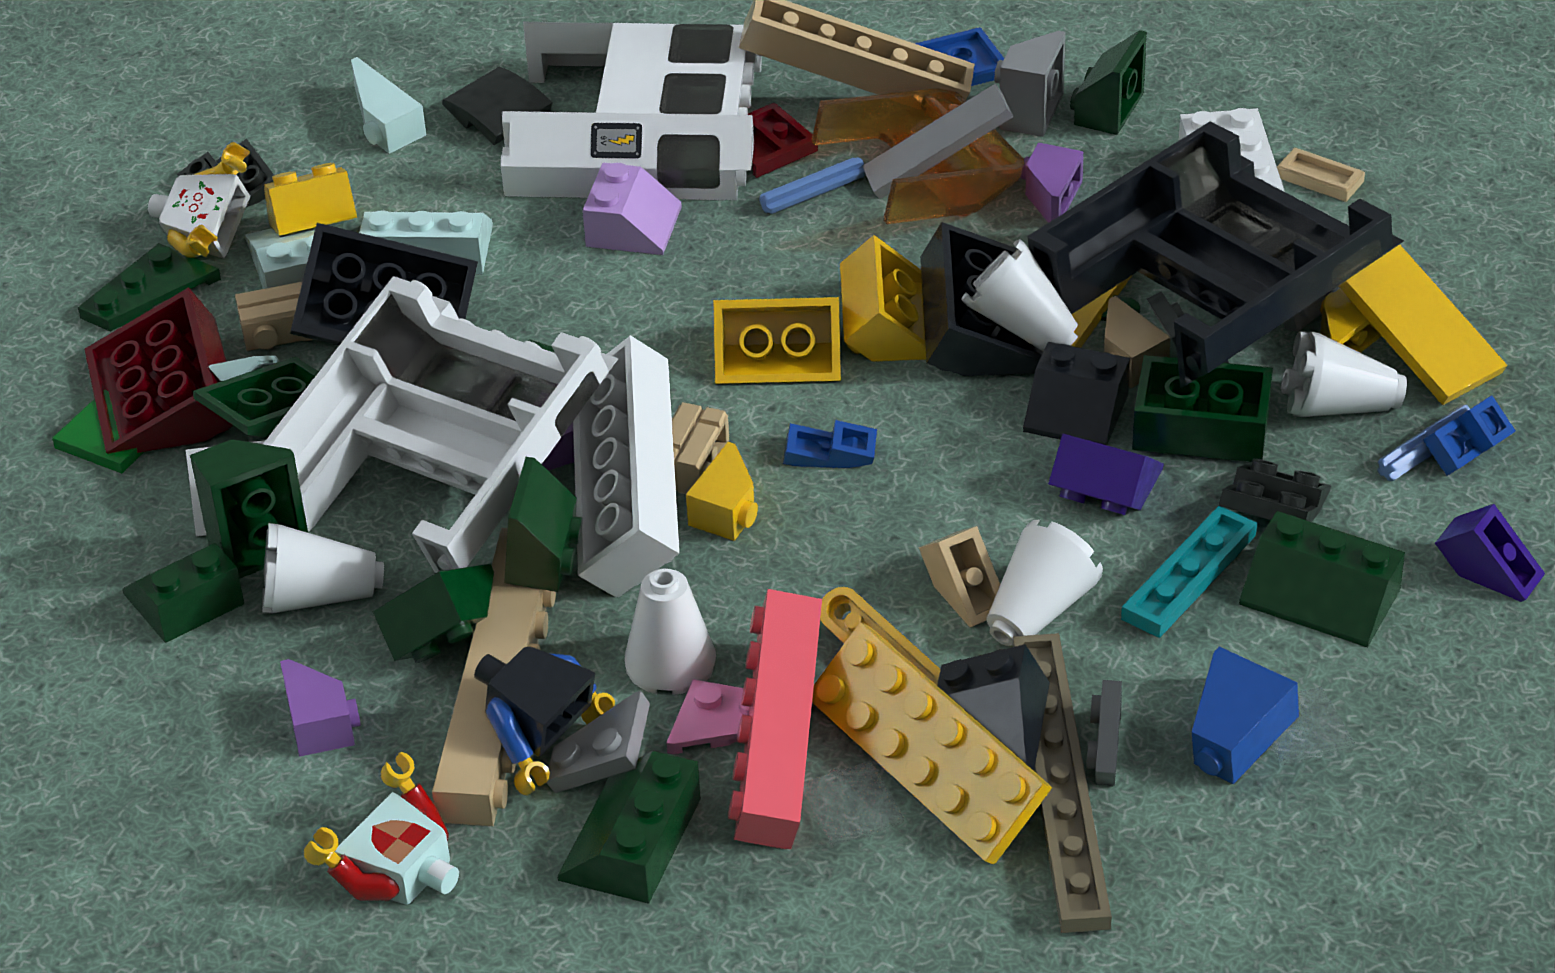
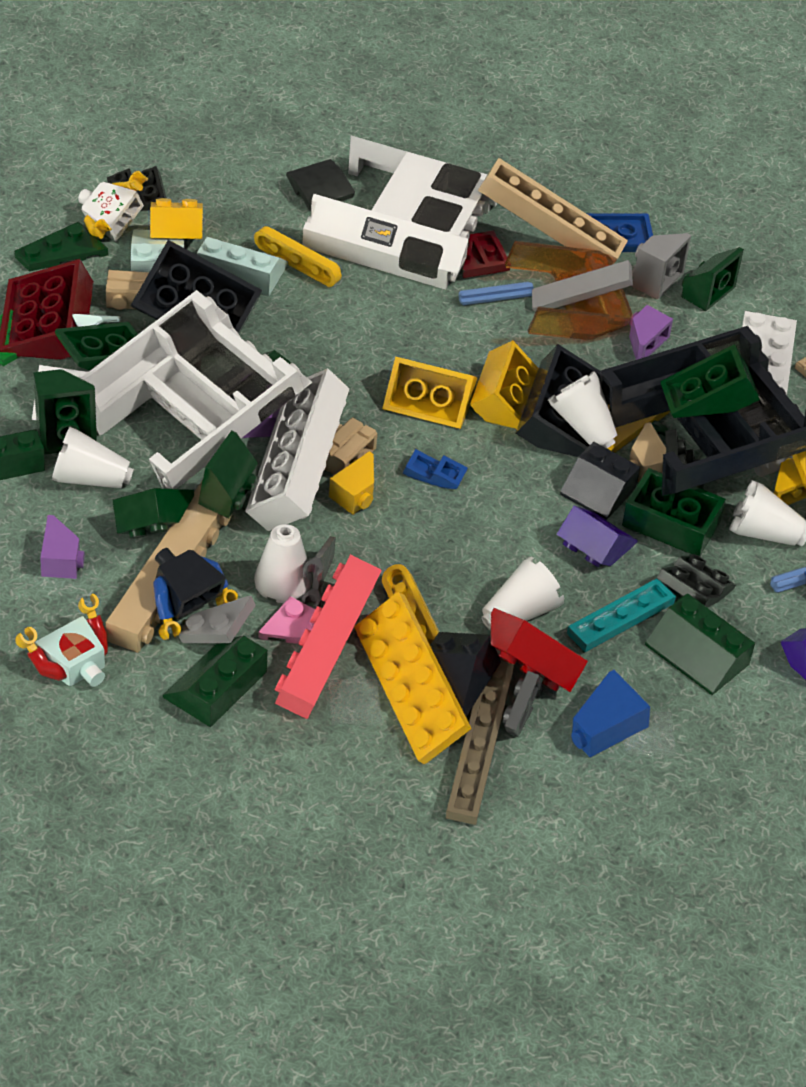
camera: 10 degrees right, 5 degrees up
(388, 113) = (250, 172): light aqua slope -> none
(507, 207) = (298, 256): none -> yellow plate
(629, 211) = (373, 279): lavender slope -> none
(727, 622) = (319, 565): none -> dark grey flag
(963, 573) = (479, 576): tan slope -> none
(1098, 649) = (535, 651): none -> red slope
(1194, 215) = (711, 386): none -> dark green slope

